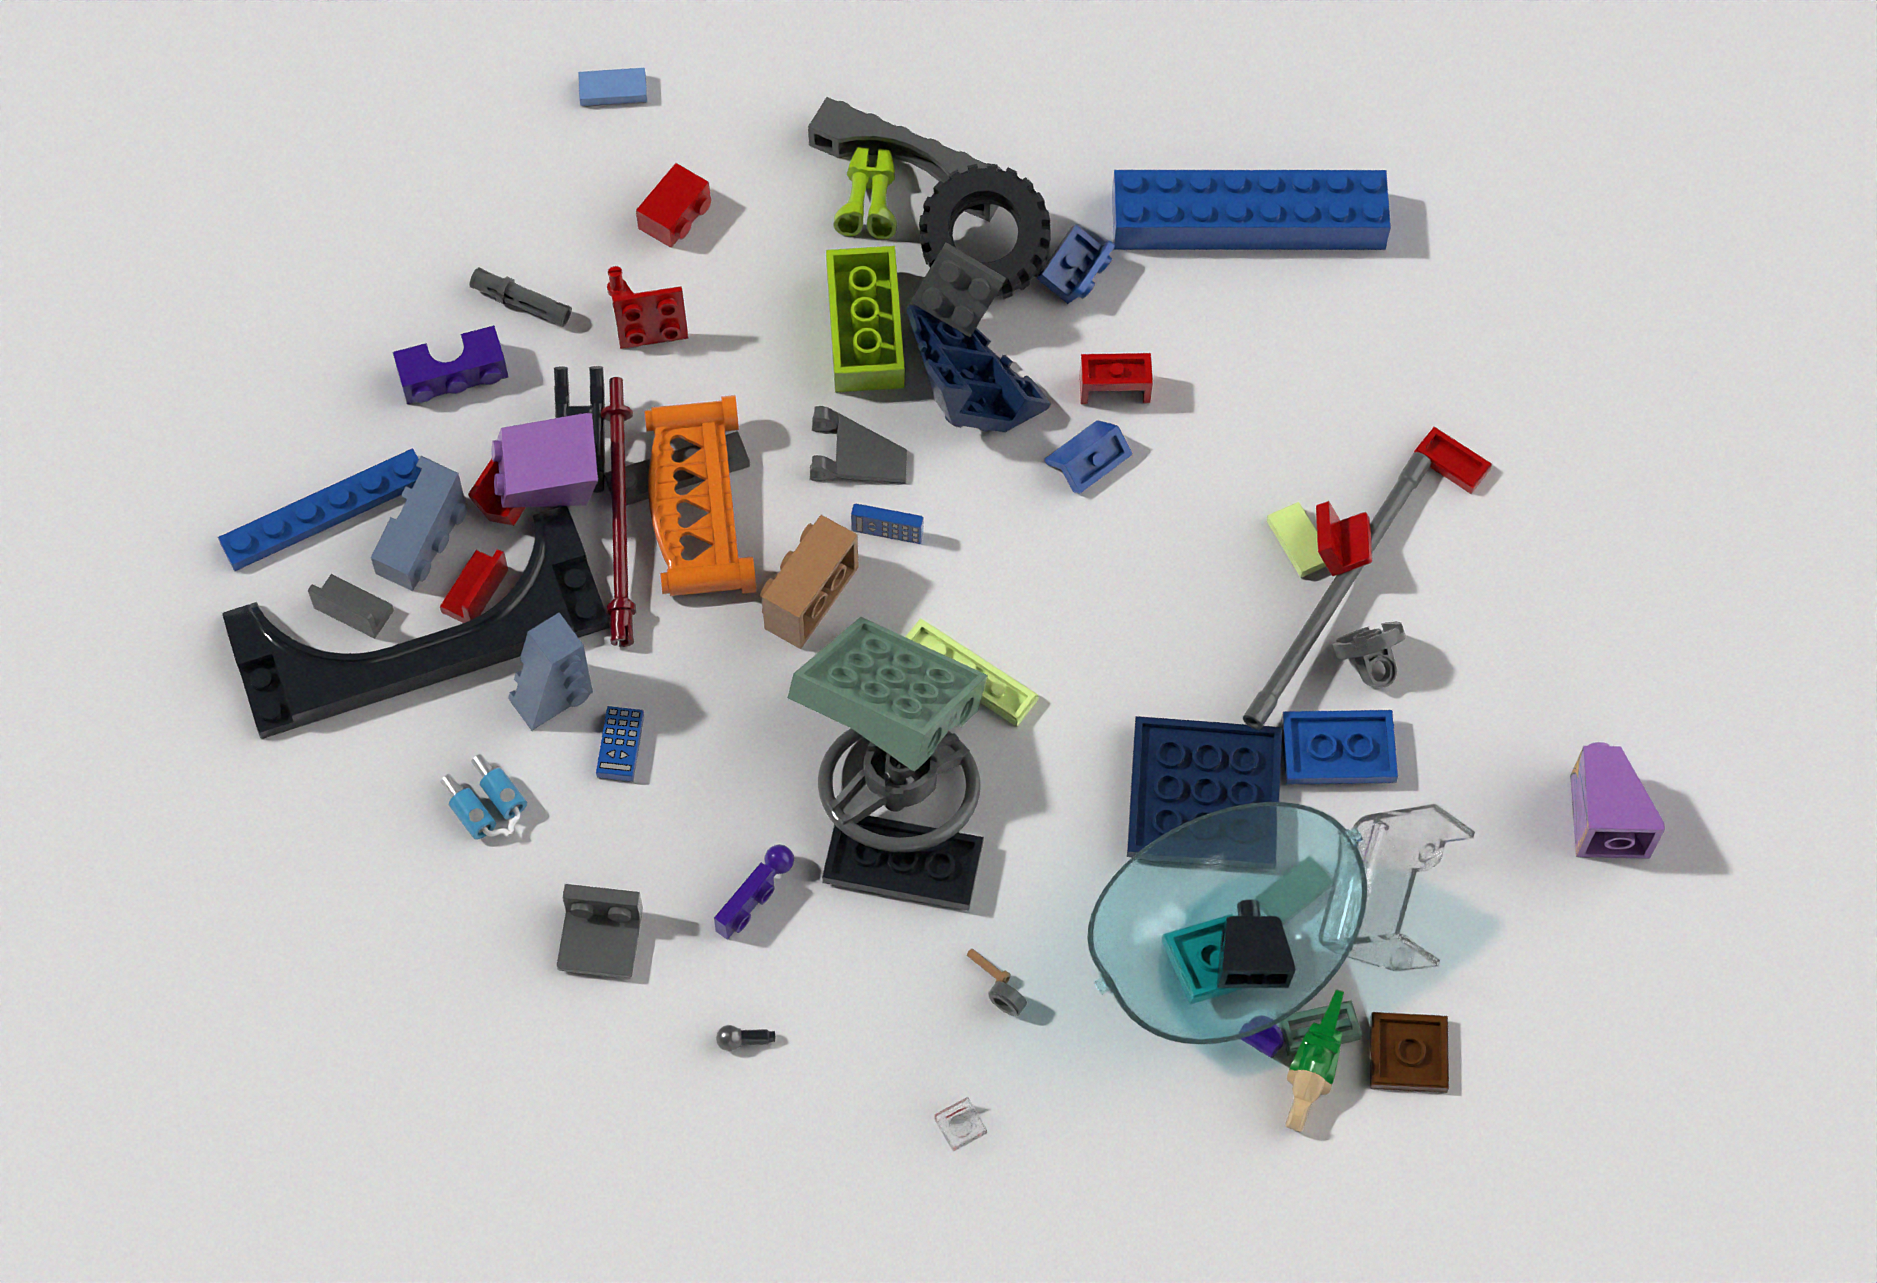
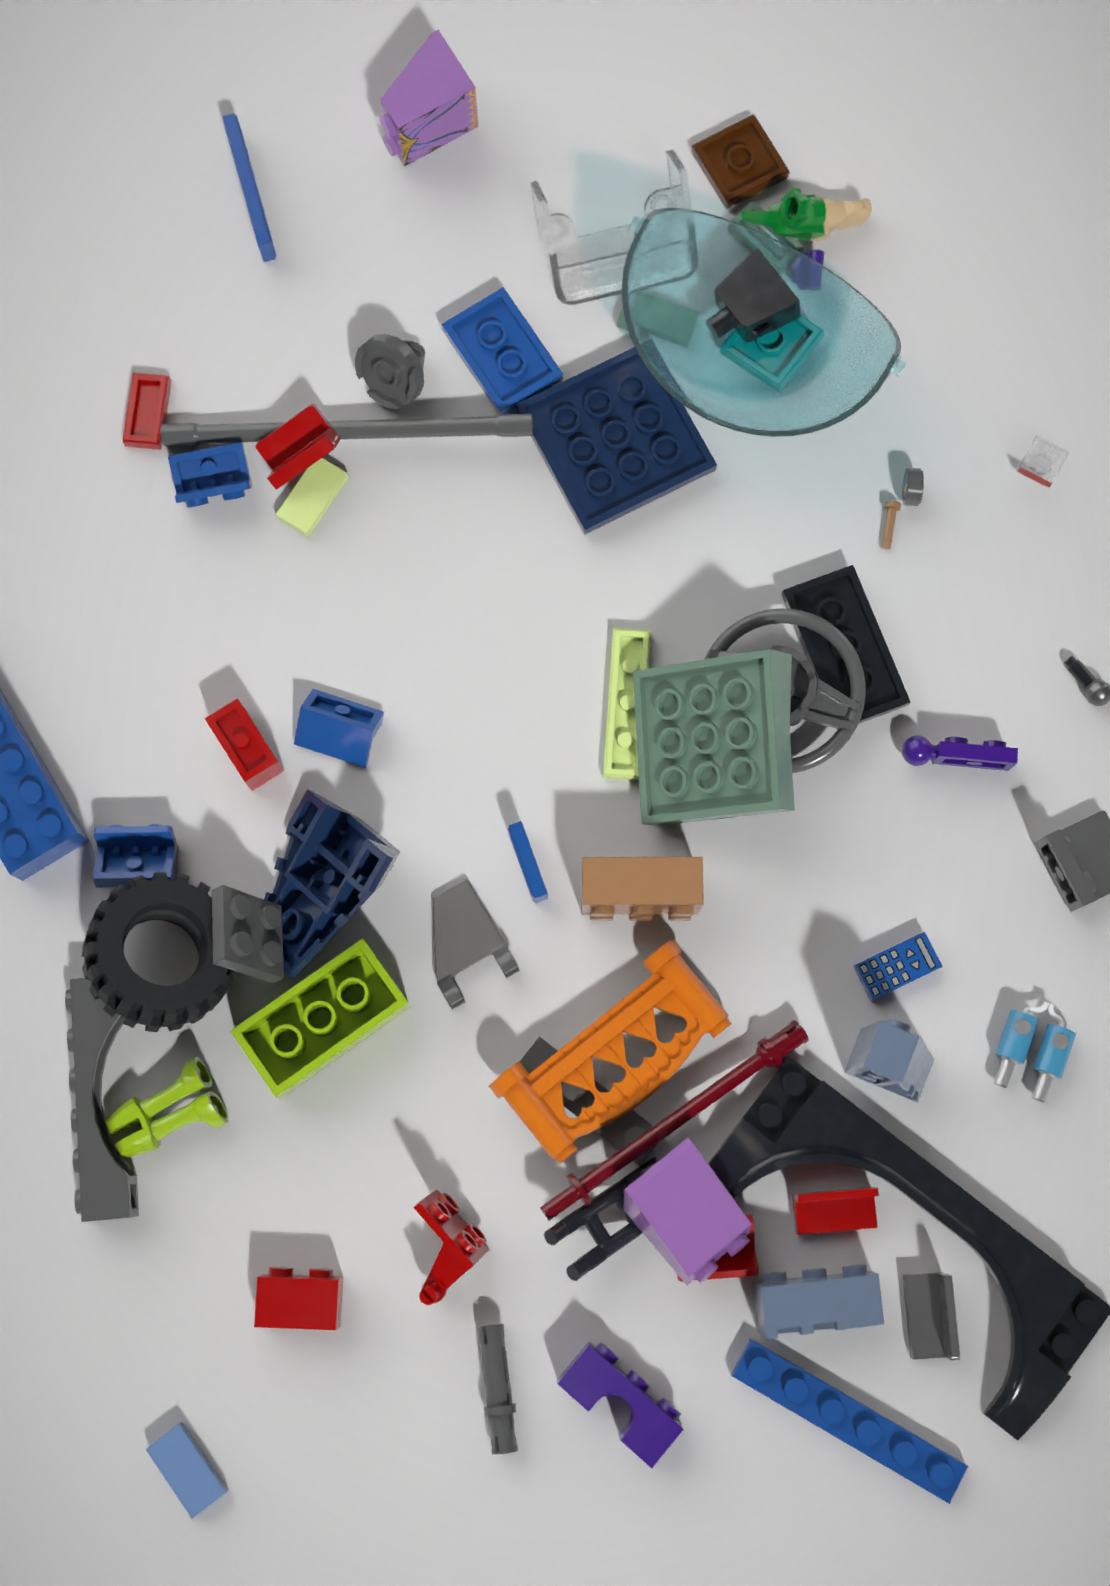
camera: 120 degrees left, 15 degrees up
(1361, 471) = (210, 473): none -> blue bracket
(1614, 633) = (249, 187): none -> blue tile

